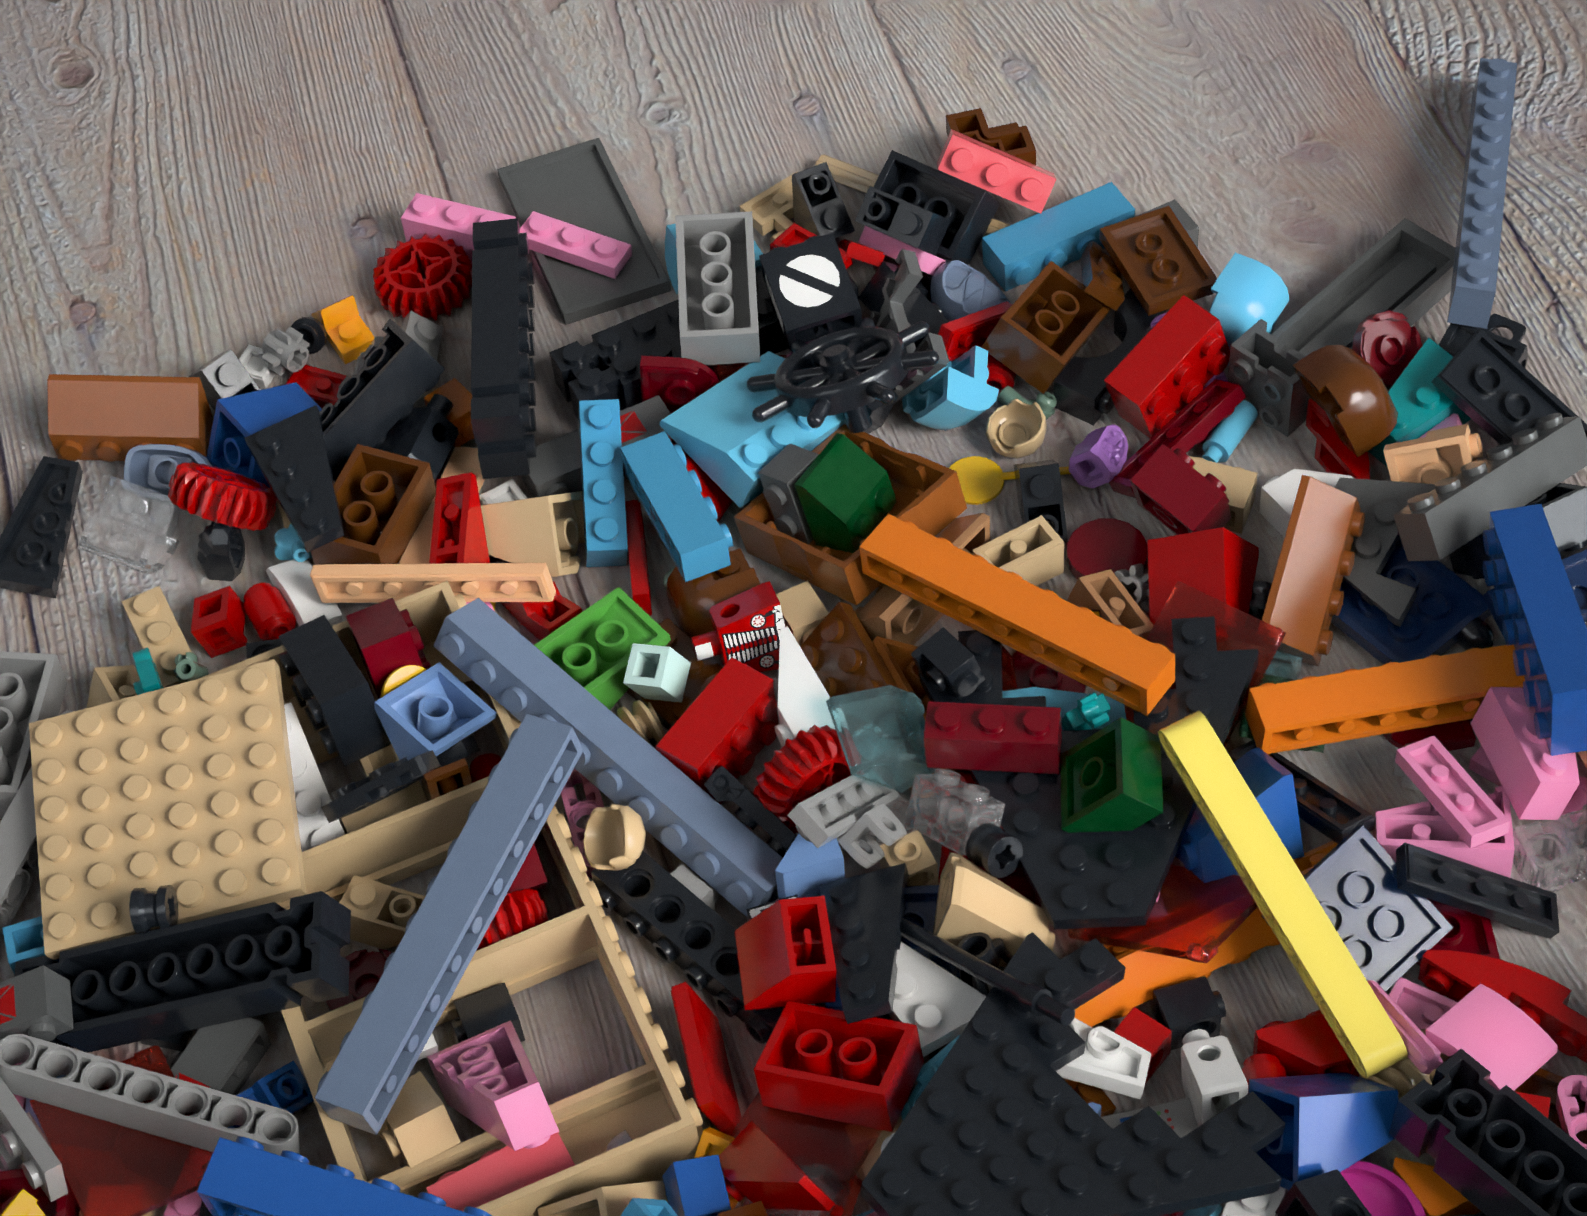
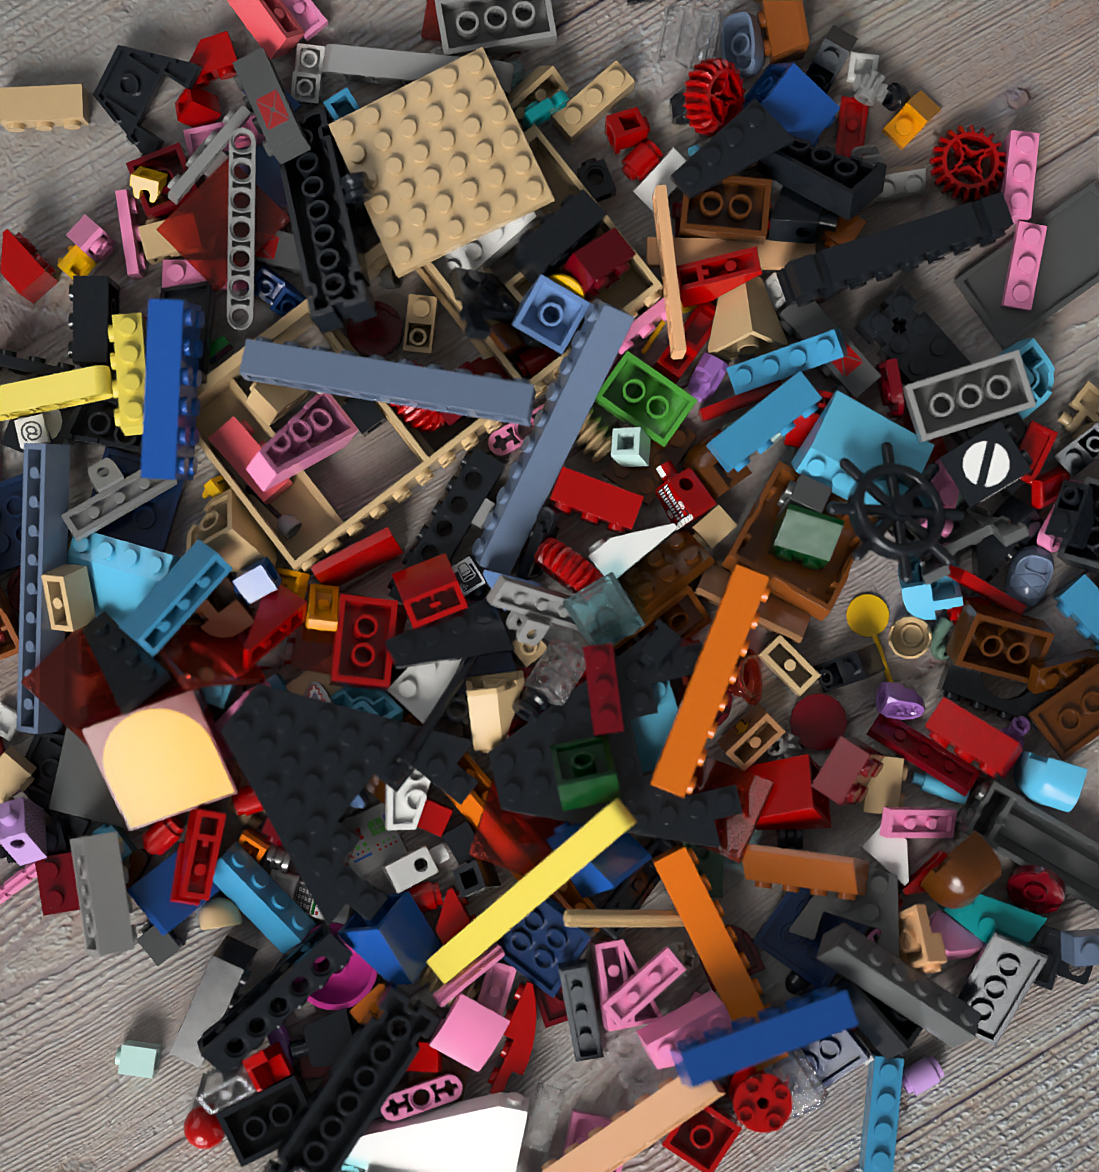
camera: 75 degrees right, 35 degrees up
(187, 667) = (561, 133): sand green arm -> none
(584, 583) = (706, 377): none -> medium lavender rock
(613, 837) = (492, 458): tan hair -> none
(775, 1112) = (322, 607): none -> light orange slope
(1089, 714) = (649, 743): teal plate -> none
(1246, 997) = (476, 878): none -> black brick
(1270, 453) = (918, 822): none -> bright pink plate
(1343, 795) = (622, 918): none -> tan axle

